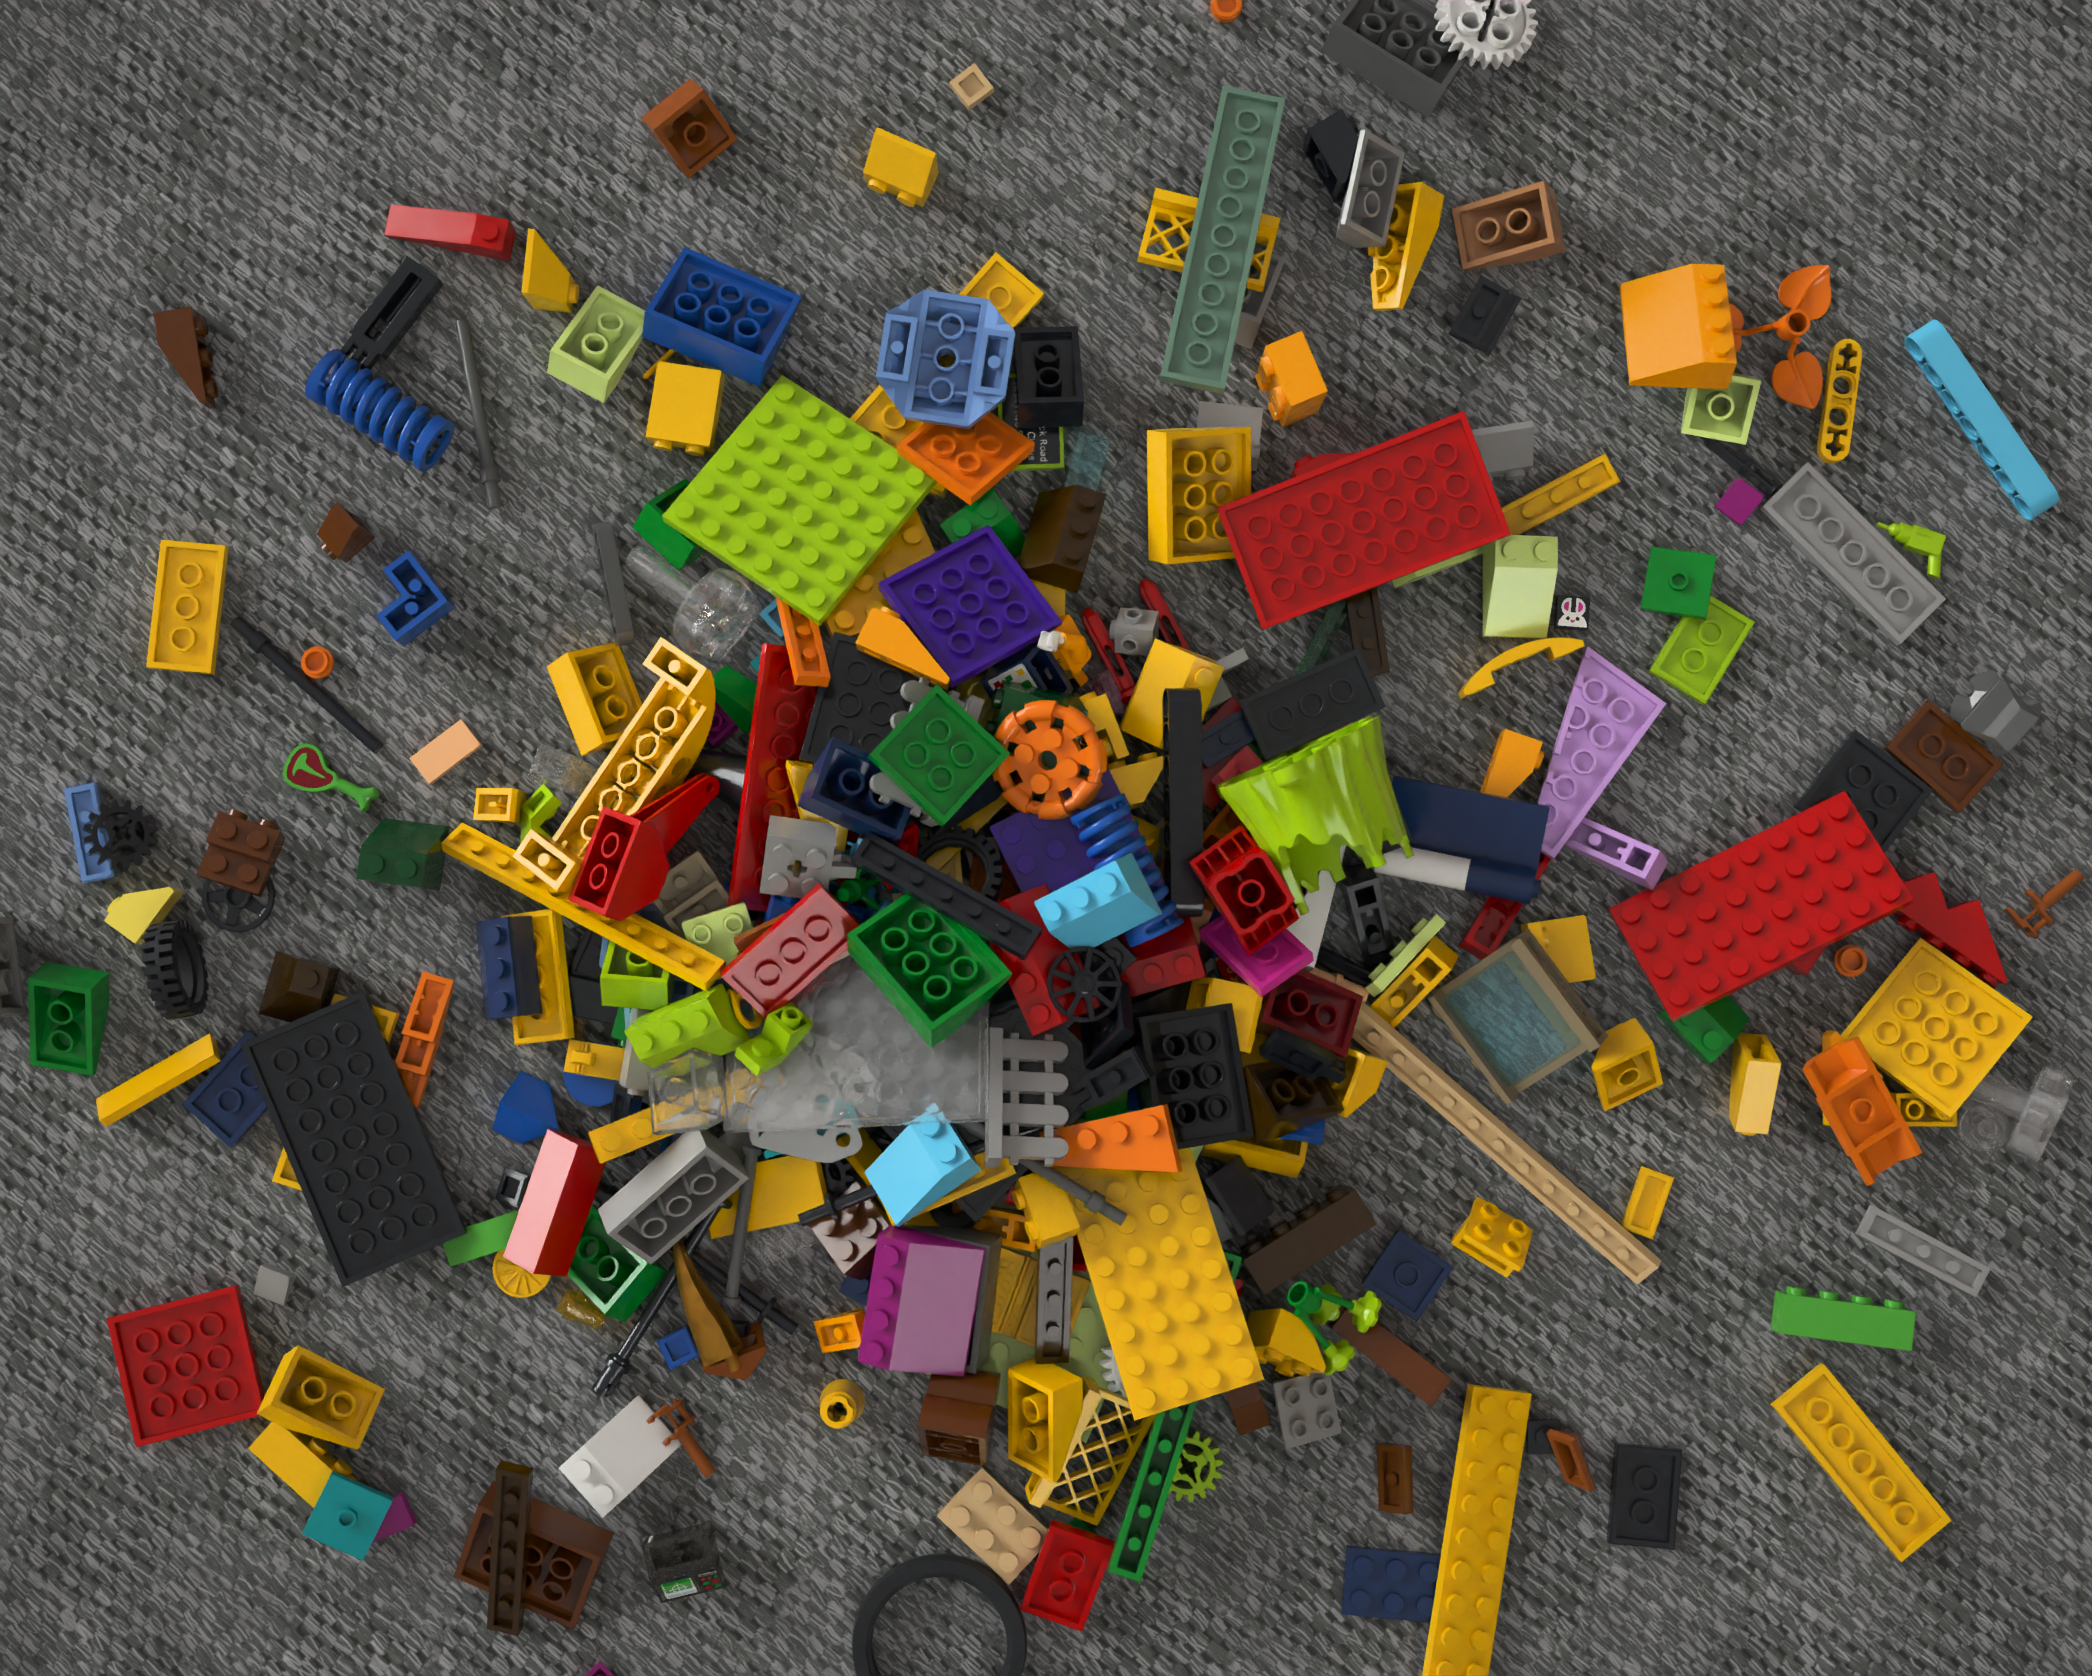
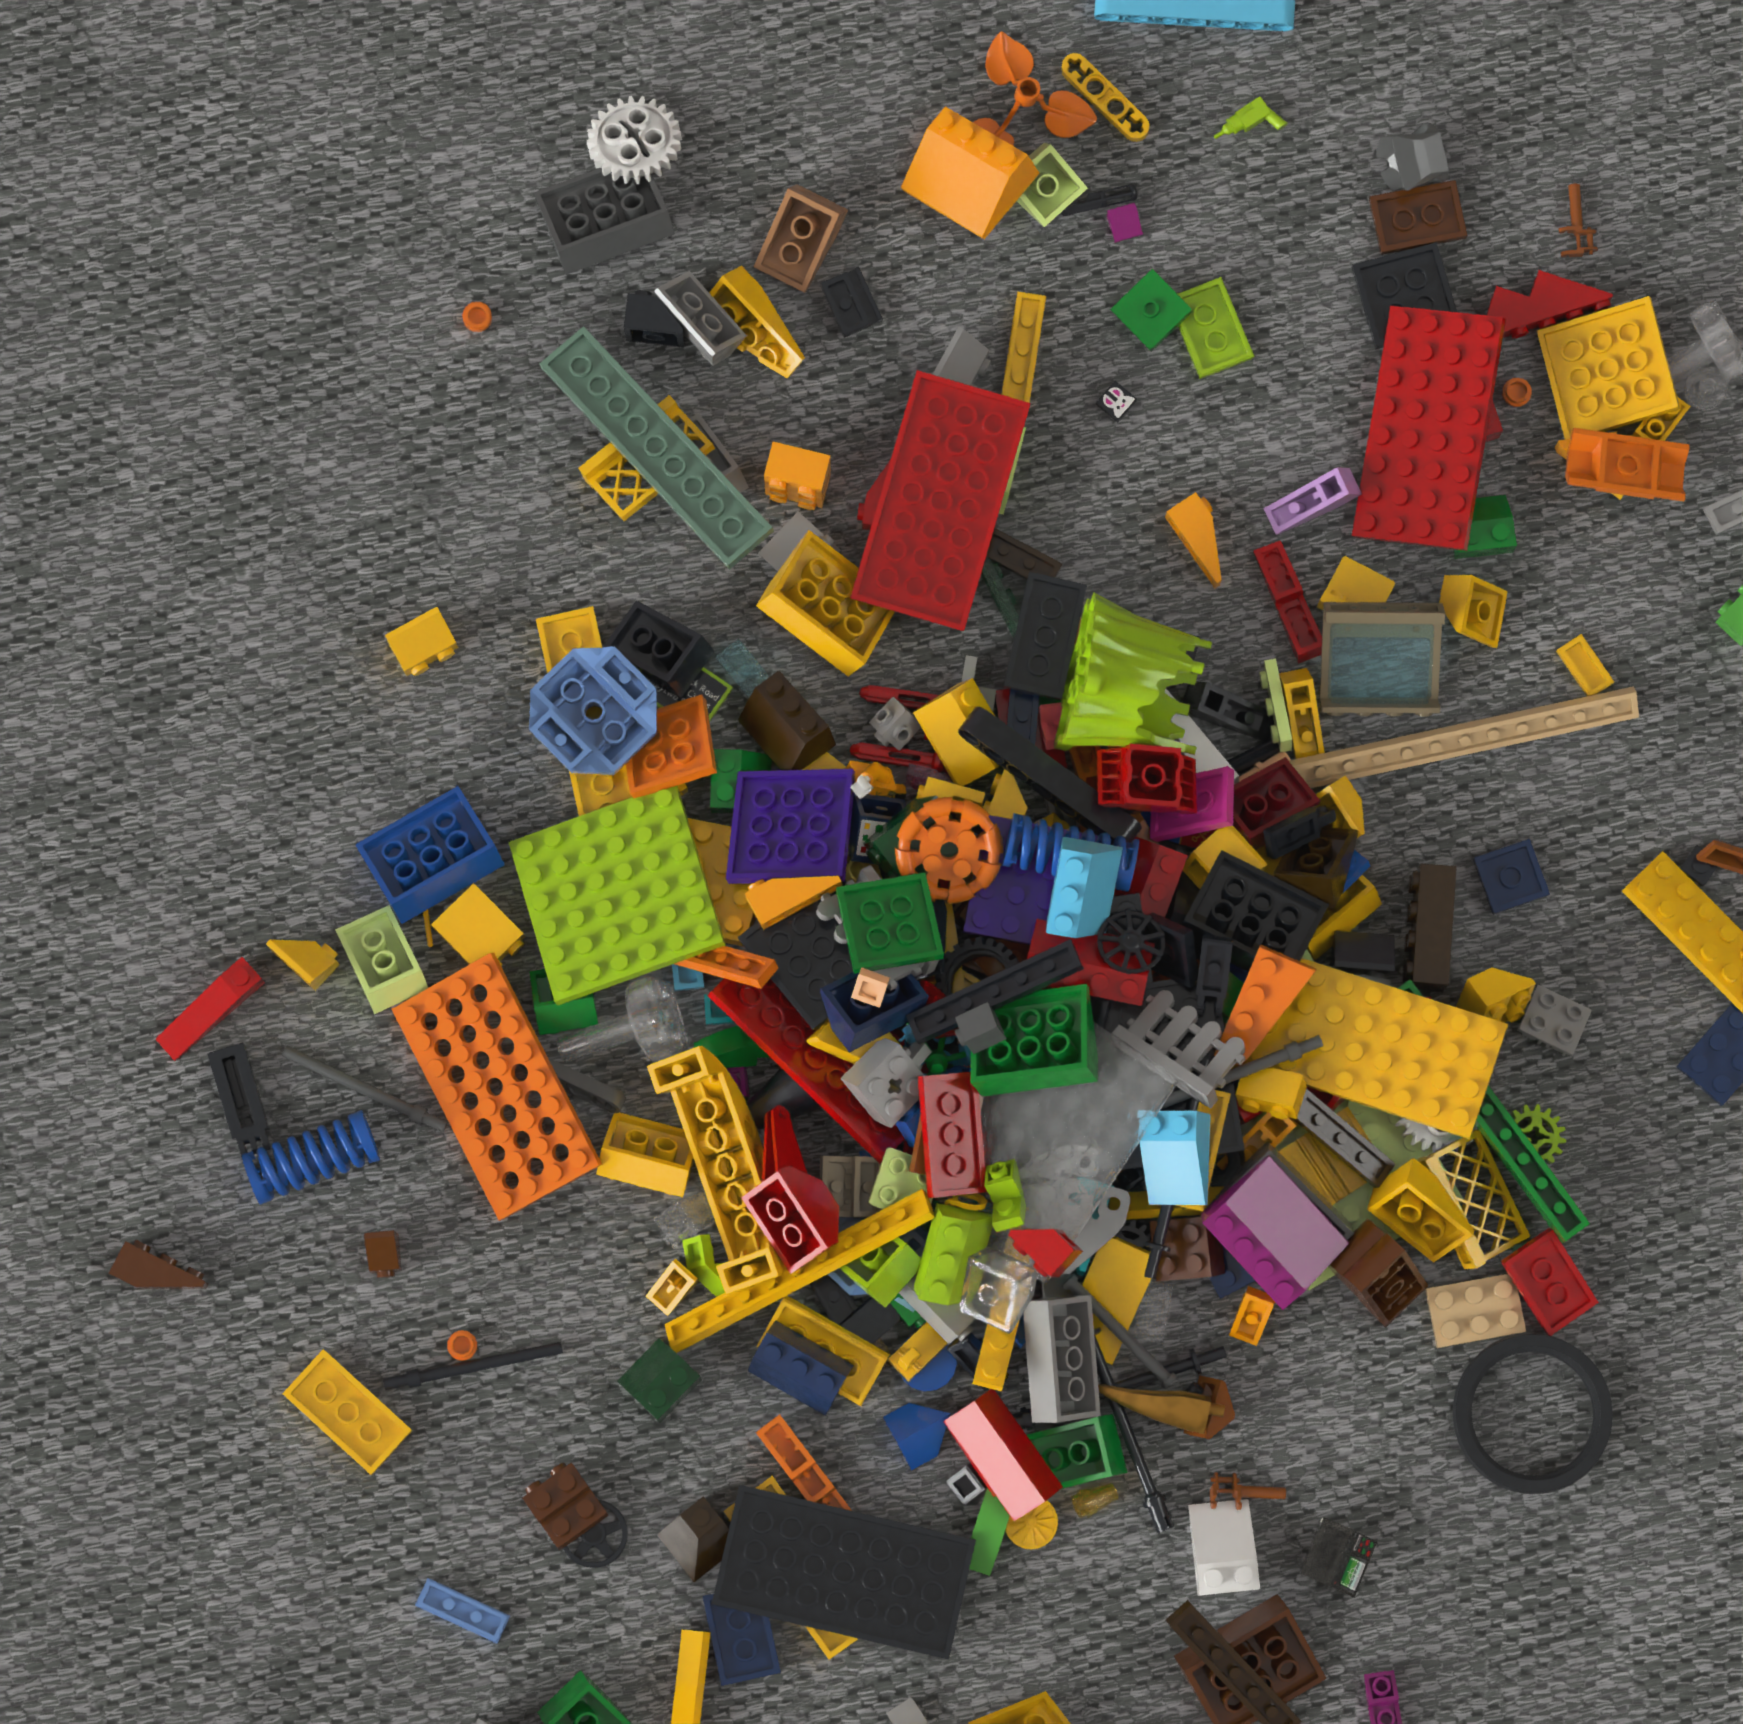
camera: 55 degrees left, 5 degrees down
(133, 842) = (478, 1596): black gear -> none
(140, 910) = (553, 1613): light yellow slope -> none
(175, 969) = (621, 1610): black tyre -> none
(309, 772) = (540, 1411): bright green piece -> none
(421, 601) = (475, 1228): blue brick -> none
(446, 751) = (601, 1298): light nougat tile -> none
(564, 543) = (540, 1078): none -> orange piece
(678, 1347) = (1174, 1449): blue tile -> none
(689, 128) = (269, 774): dark orange slope -> none
(751, 1112) = (1049, 1249): none -> red slope
(846, 1393) = (1292, 1357): yellow plant -> none
(864, 781) = (870, 987): none -> light nougat plate
(901, 906) = (979, 1028): none -> dark grey brick
(971, 86) = (397, 545): tan plate -> none
(1247, 1408) = (1520, 1061): reddish brown slope -> none
(1324, 1305) = (1487, 952): lime plant -> none
(1394, 1357) = (1556, 929): reddish brown slope -> none
(1395, 1478) = (1651, 993): reddish brown plate -> none
(1469, 840) = (1229, 596): dark blue door -> none
(1494, 1238) = (1530, 794): yellow bracket -> none
(1519, 586) = (1069, 425): yellowish green slope -> none
(1553, 648) = (1133, 434): yellow slope -> none
(1596, 736) = (1219, 450): lavender wing -> none
(1753, 1083) = (1554, 527): yellow slope -> none
(1852, 554) = (1223, 171): light grey plate -> none

